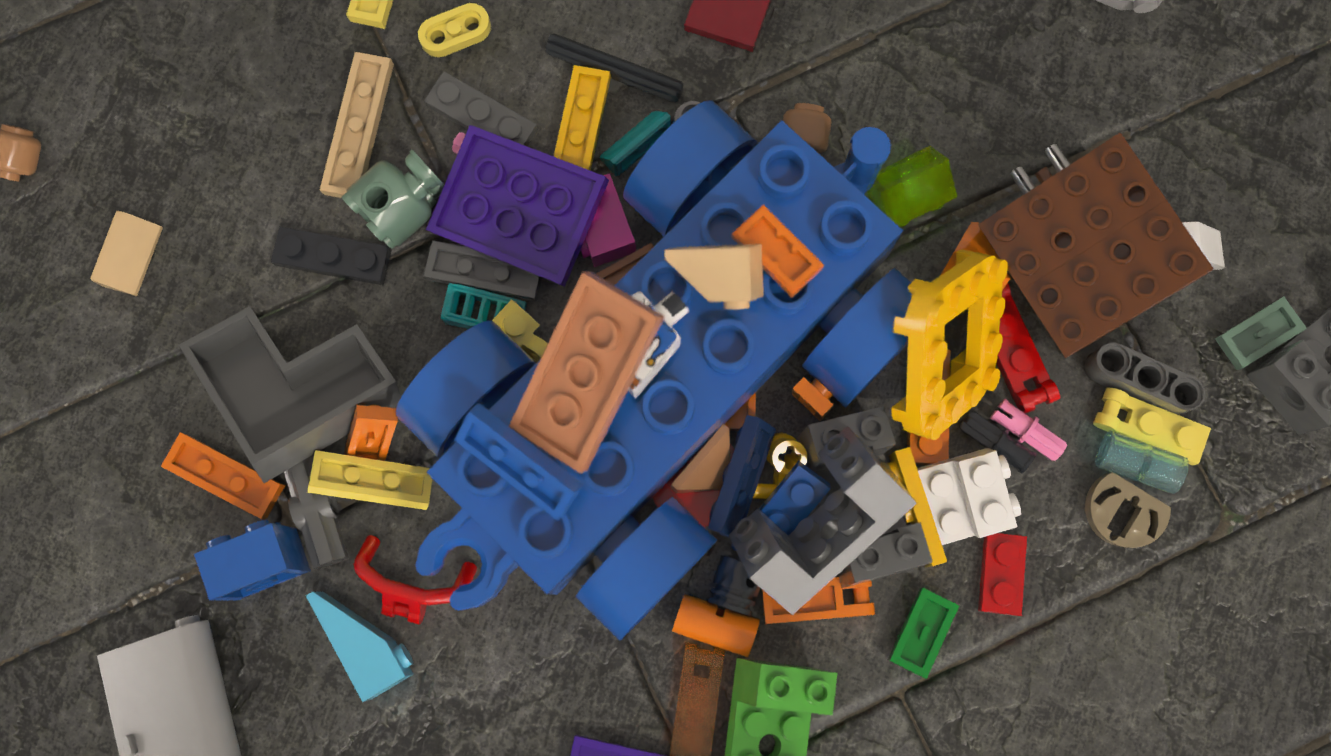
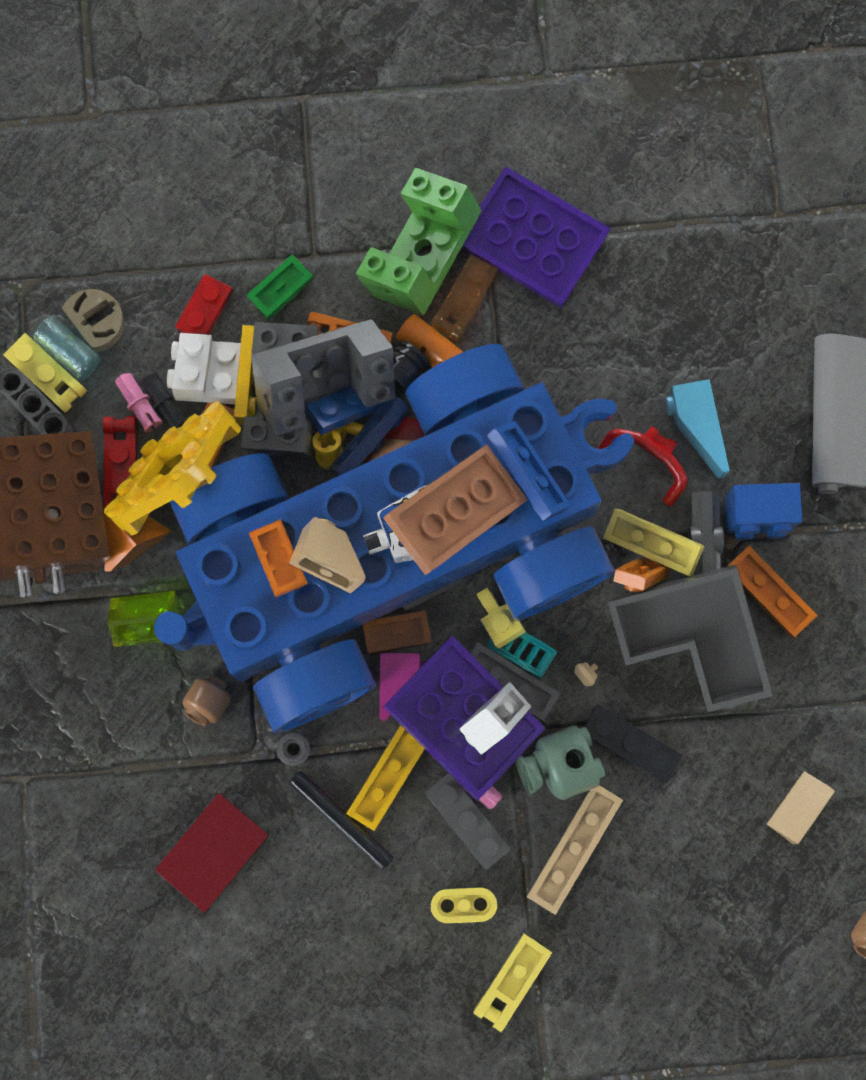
camera: 160 degrees left, 0 degrees up
(404, 312) = (586, 673): none -> tan rock
(478, 208) = (495, 718): none -> white slope
(635, 142) = (347, 748): teal slope -> none
(813, 397) = (291, 476): orange plate -> none

